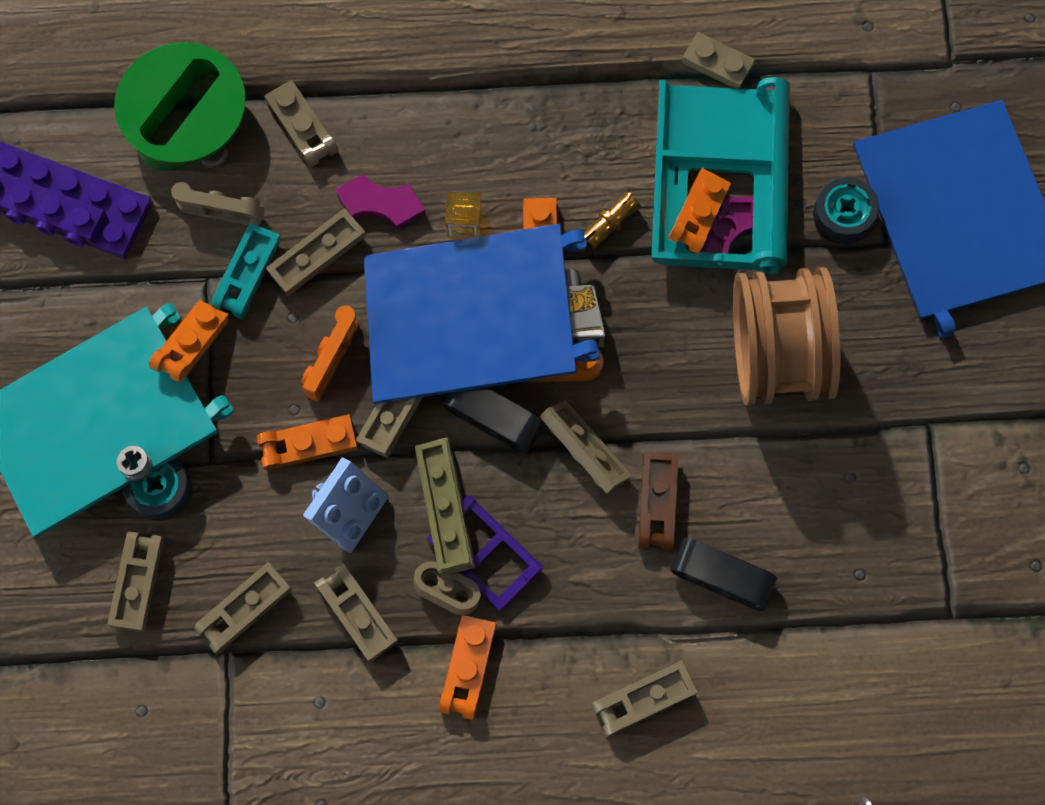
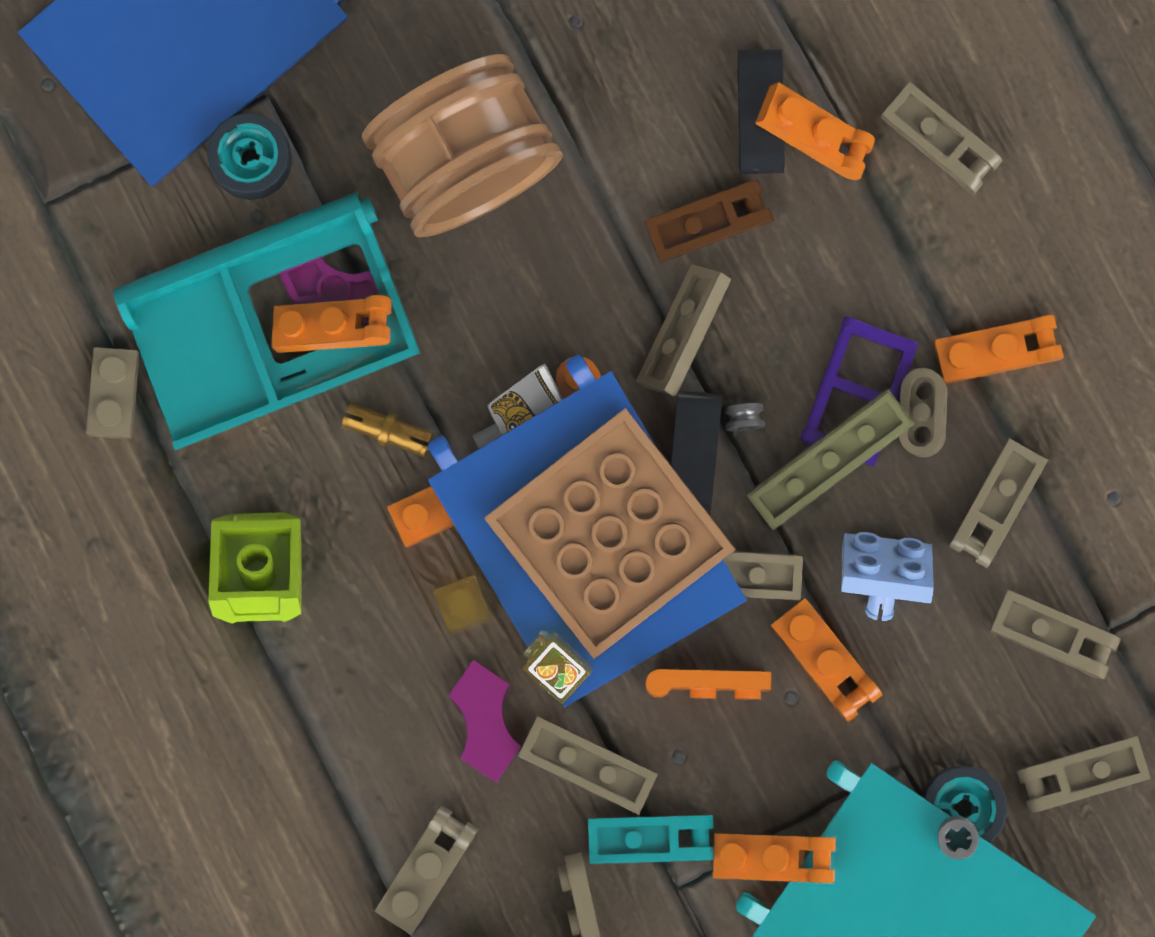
camera: 115 degrees left, 10 degrees up
(390, 254) = (556, 666): none -> clear yellow brick
(462, 324) = (609, 533): none -> medium nougat plate
(503, 461) = (744, 417): none -> flat silver bush
(557, 97) = (255, 567): none -> lime slope
(690, 602) = (814, 131): none -> orange plate

